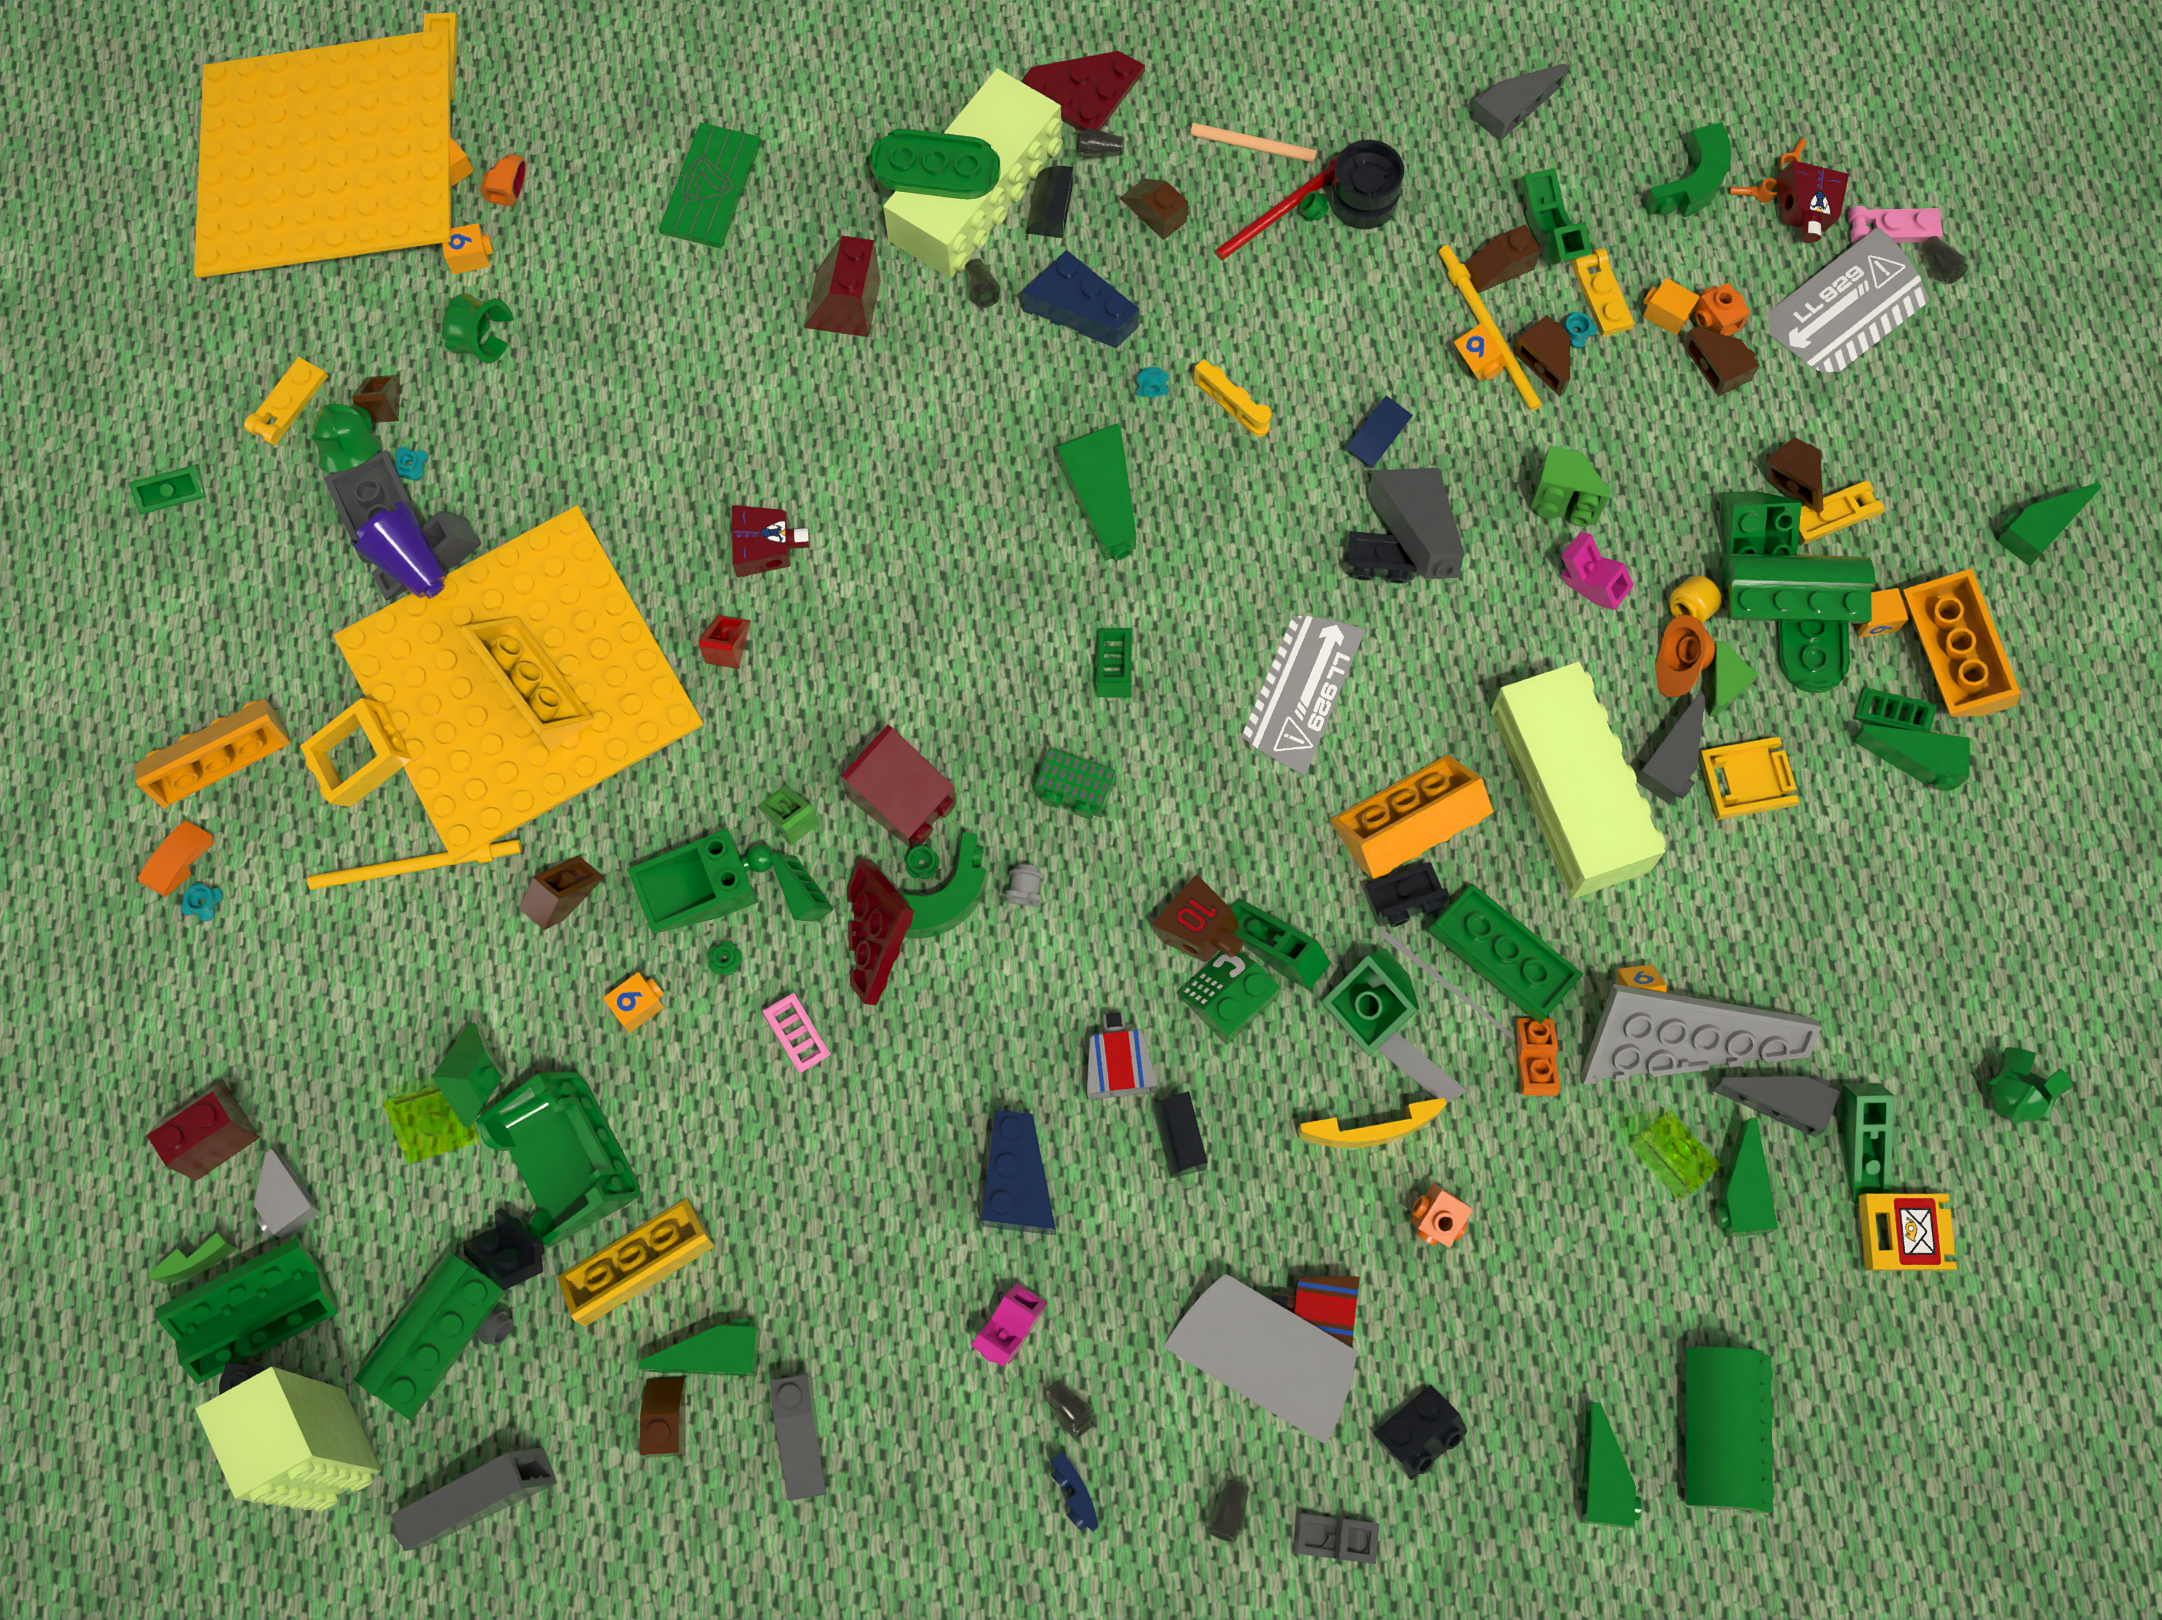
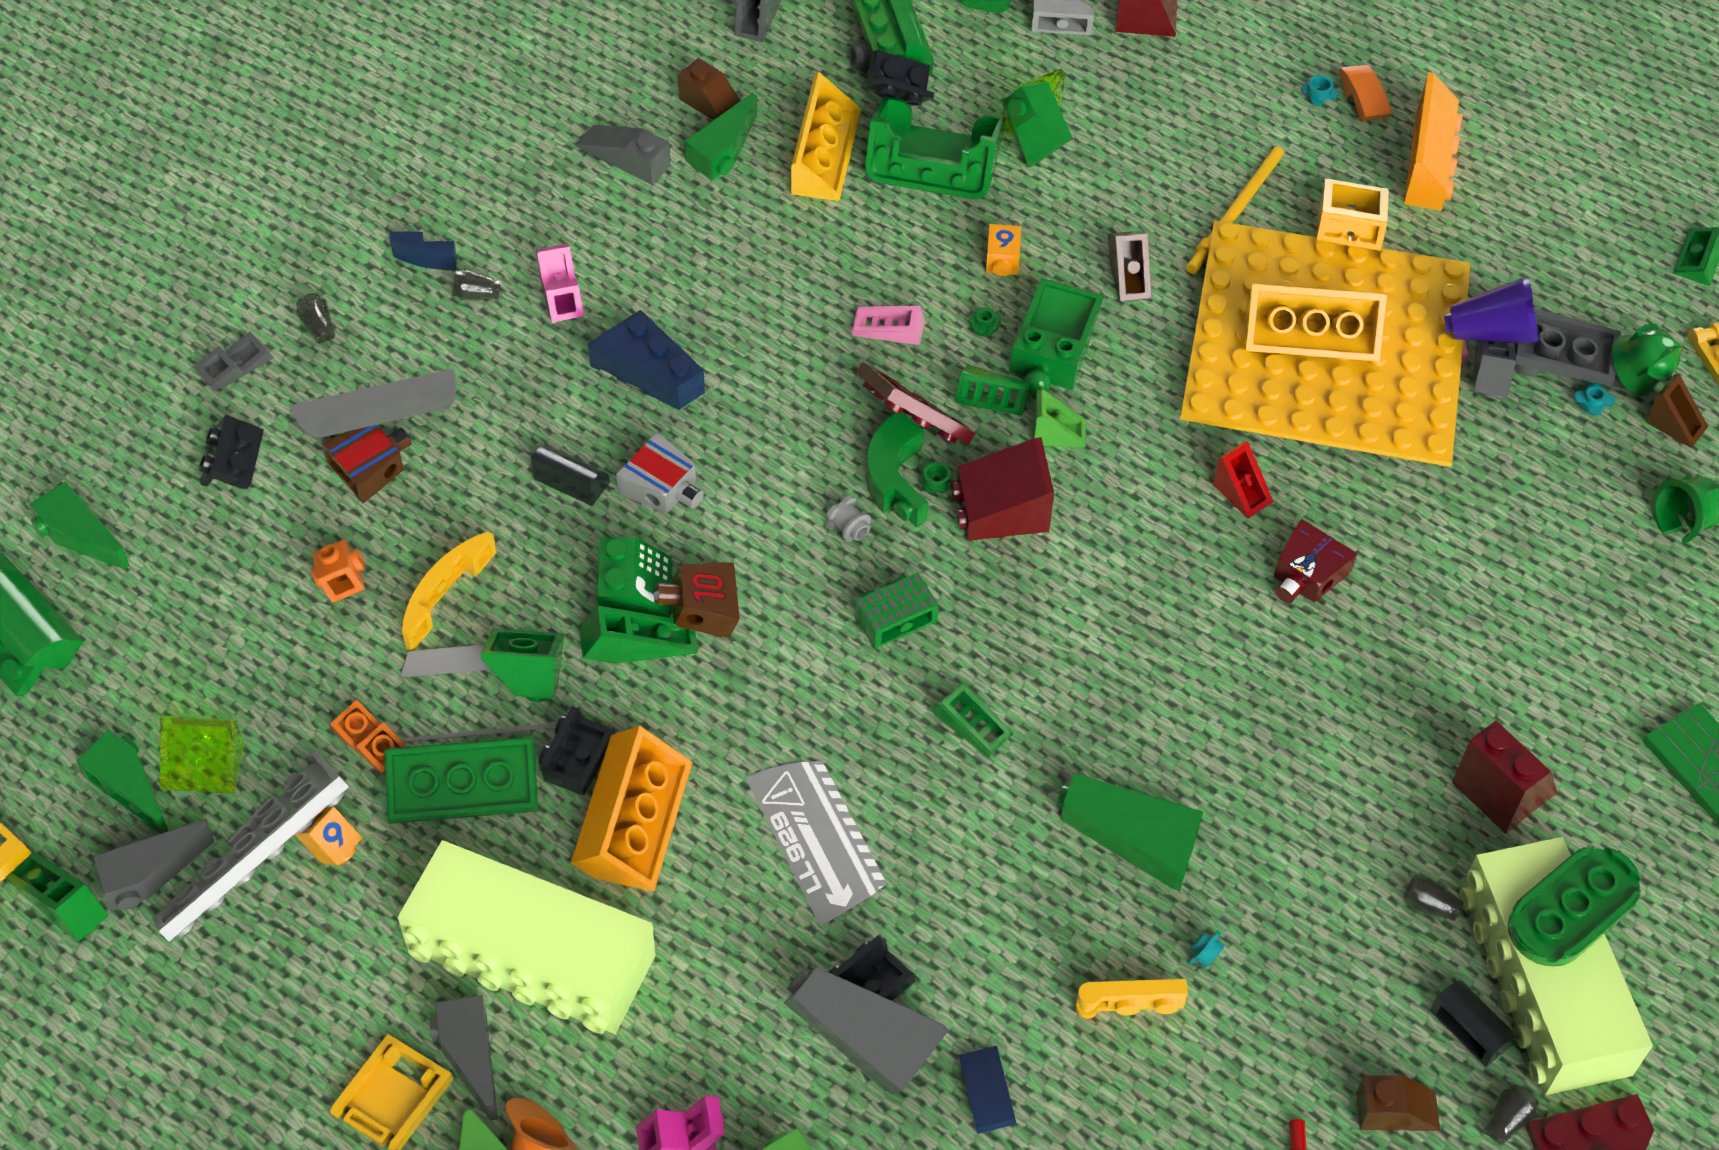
camera: 130 degrees right, 15 degrees down
(1082, 301) = (1339, 955): dark blue wedge -> none

